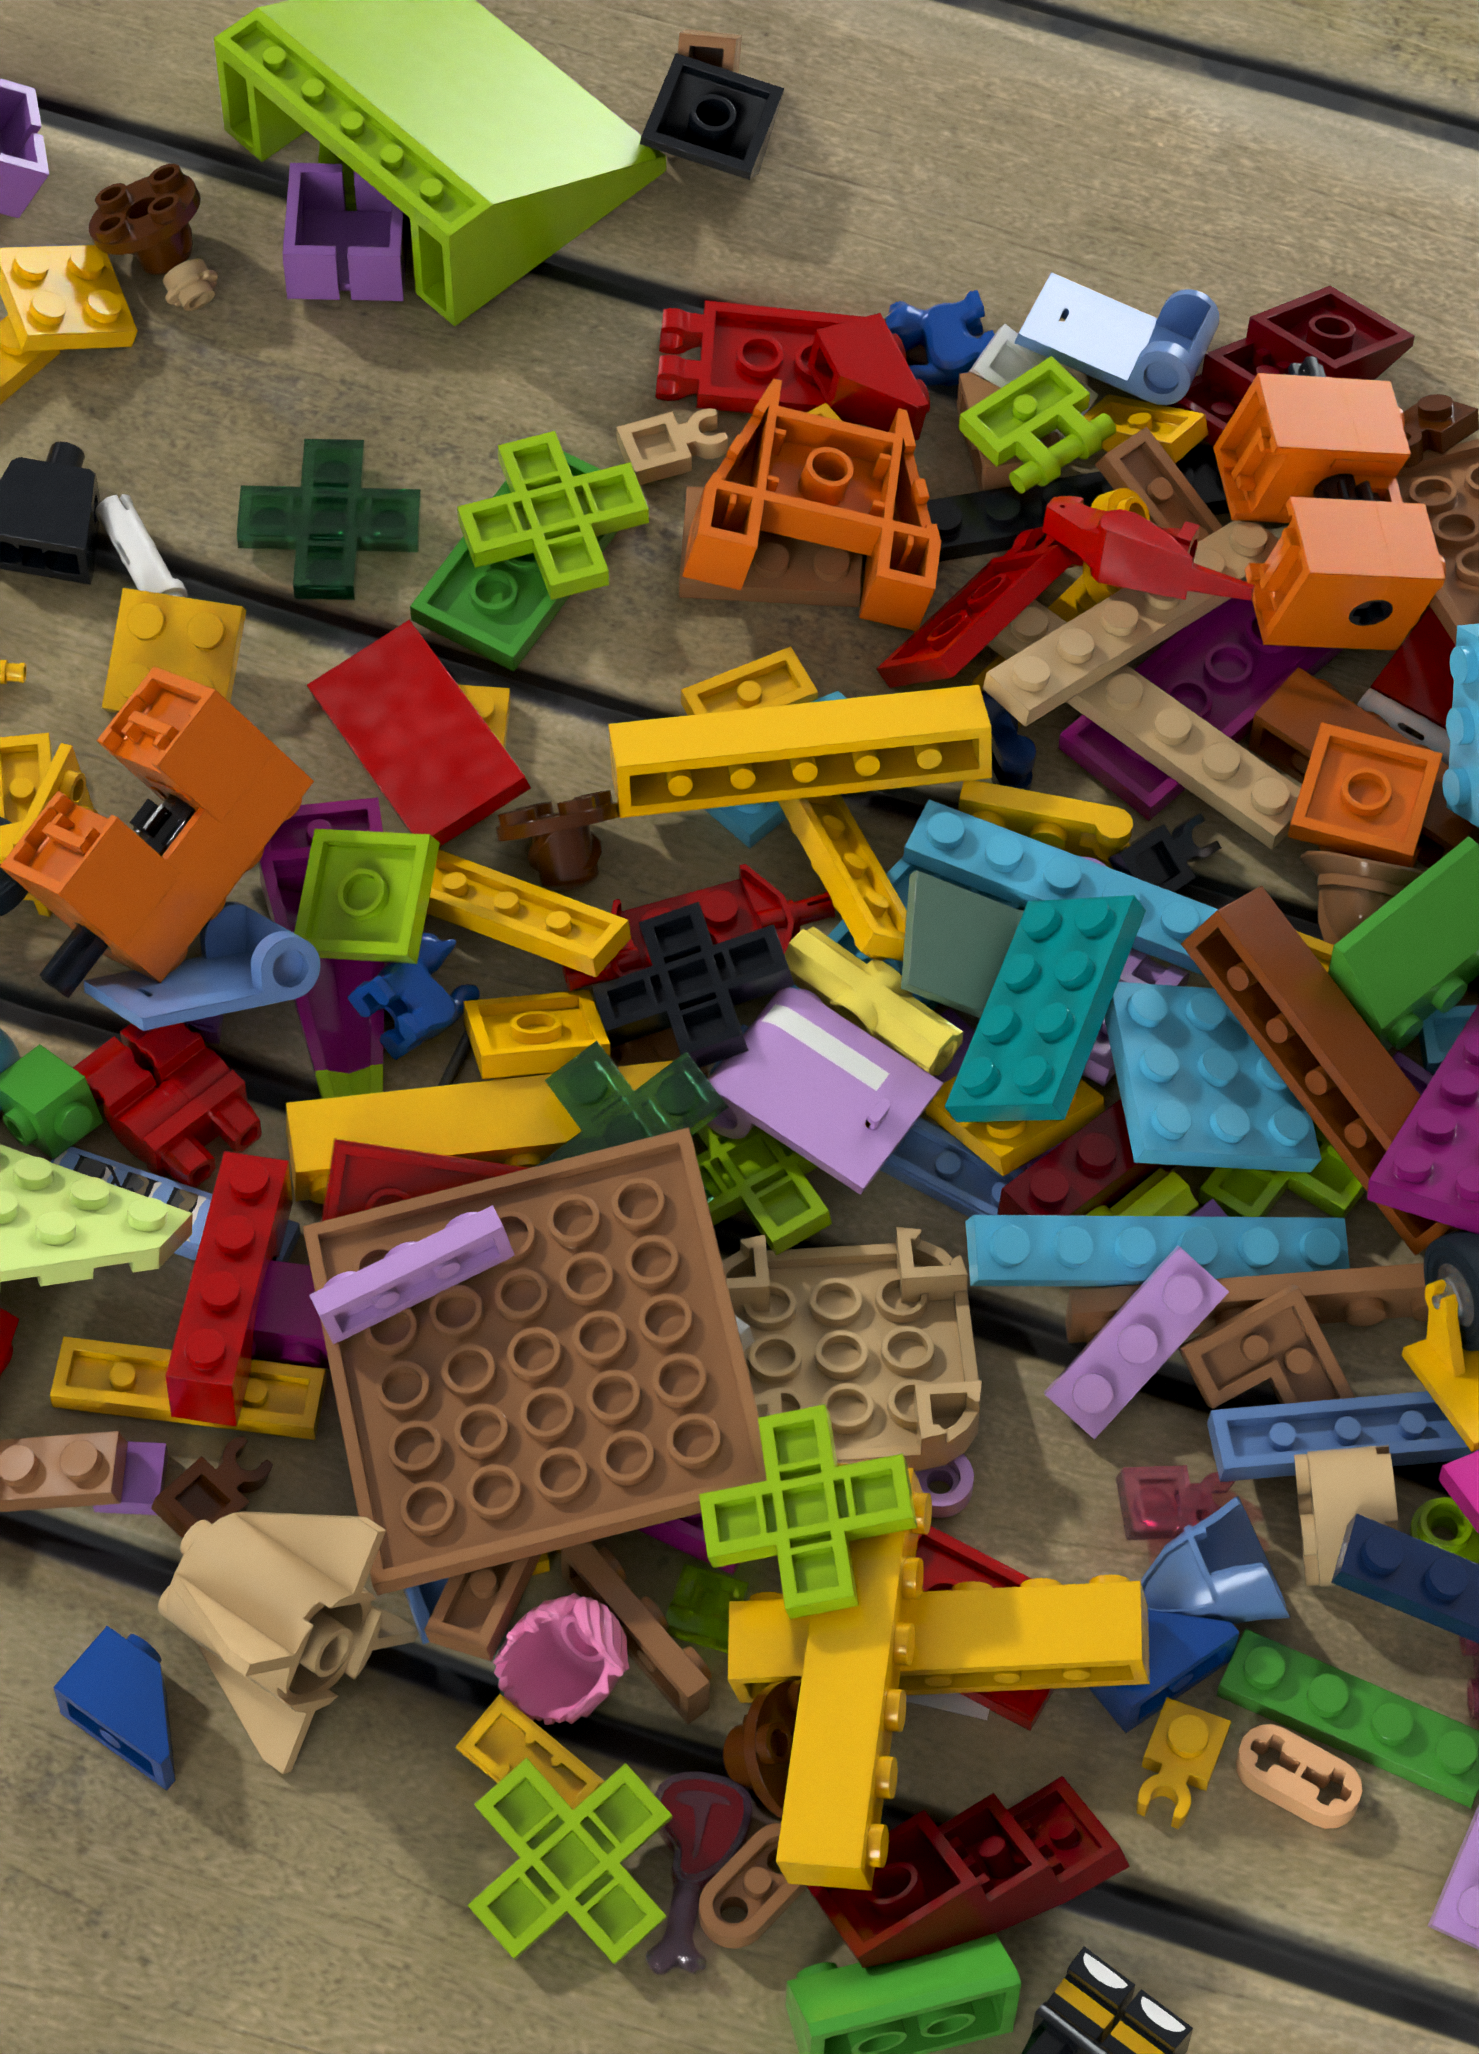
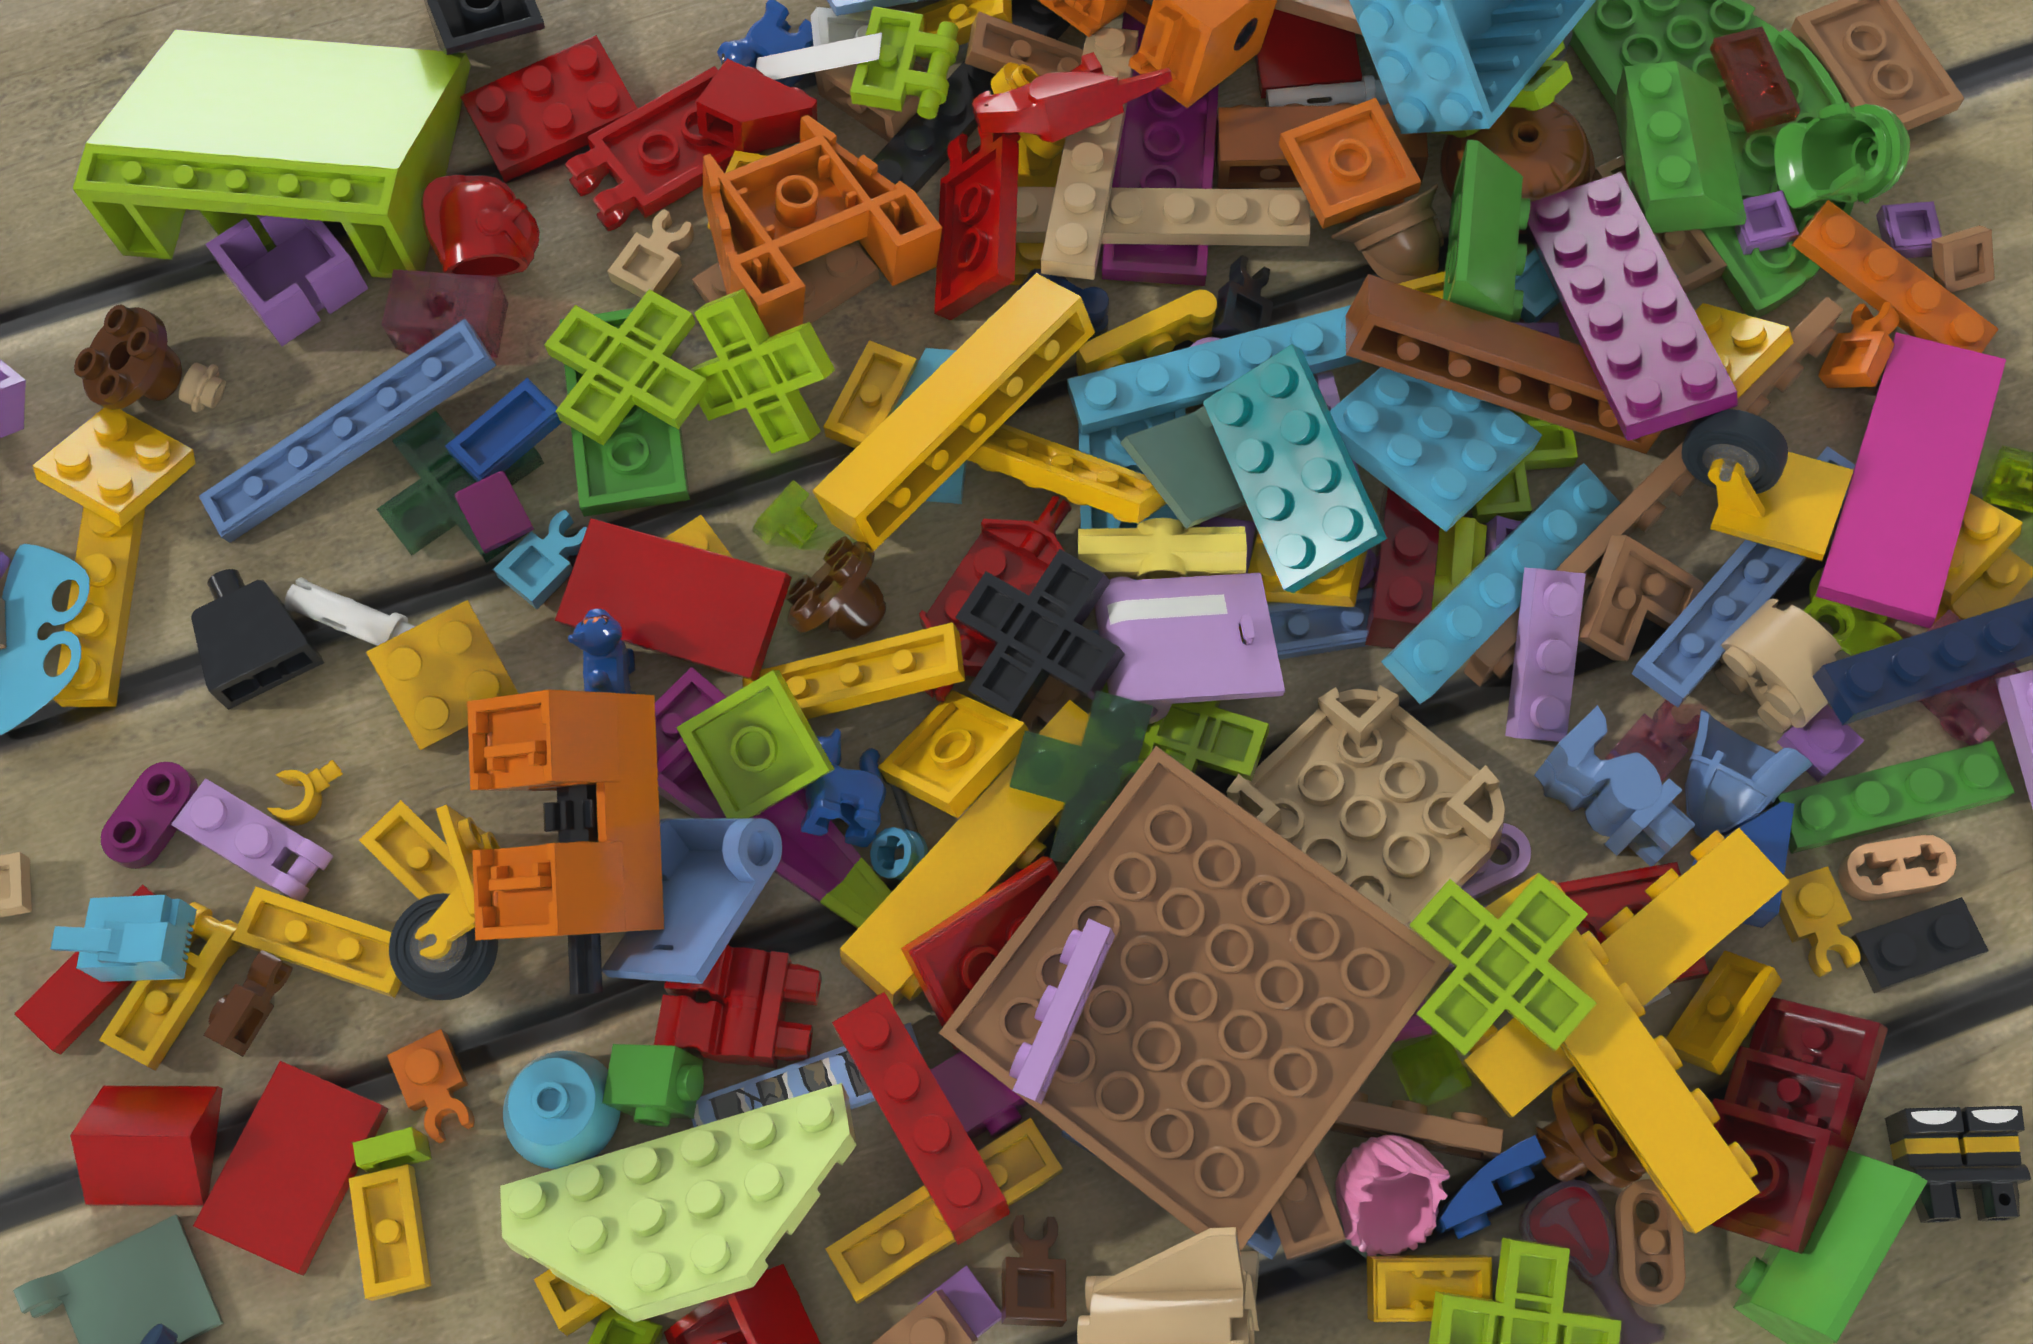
camera: 35 degrees left, 10 degrees up
(276, 403) = (347, 431): none -> medium blue tile
(317, 741) = (604, 653): none -> blue animal
(332, 554) = (493, 511): none -> magenta slope
(334, 630) = (539, 565): none -> medium azure plate
(401, 498) = (505, 431): none -> blue tile
(414, 1072) = (884, 848): none -> dark azure bush
(446, 366) = (430, 303): none -> clear pink brick
(536, 310) = (478, 226): none -> red helmet
(578, 739) = (787, 518): none -> clear neon green tile
(632, 1726) = (1472, 1202): none -> blue slope
(659, 597) = (760, 371): none -> lime plate
(699, 252) = (548, 107): none -> red plate
(965, 369) = (821, 57): none -> white sticker
(1008, 1758) = (1723, 1011): none -> yellow plate
(1083, 1487) = (1619, 795): none -> medium blue hips
(1253, 1854) = (1919, 945): none -> black plate
(1336, 1623) = (1822, 742): none -> medium lavender plate

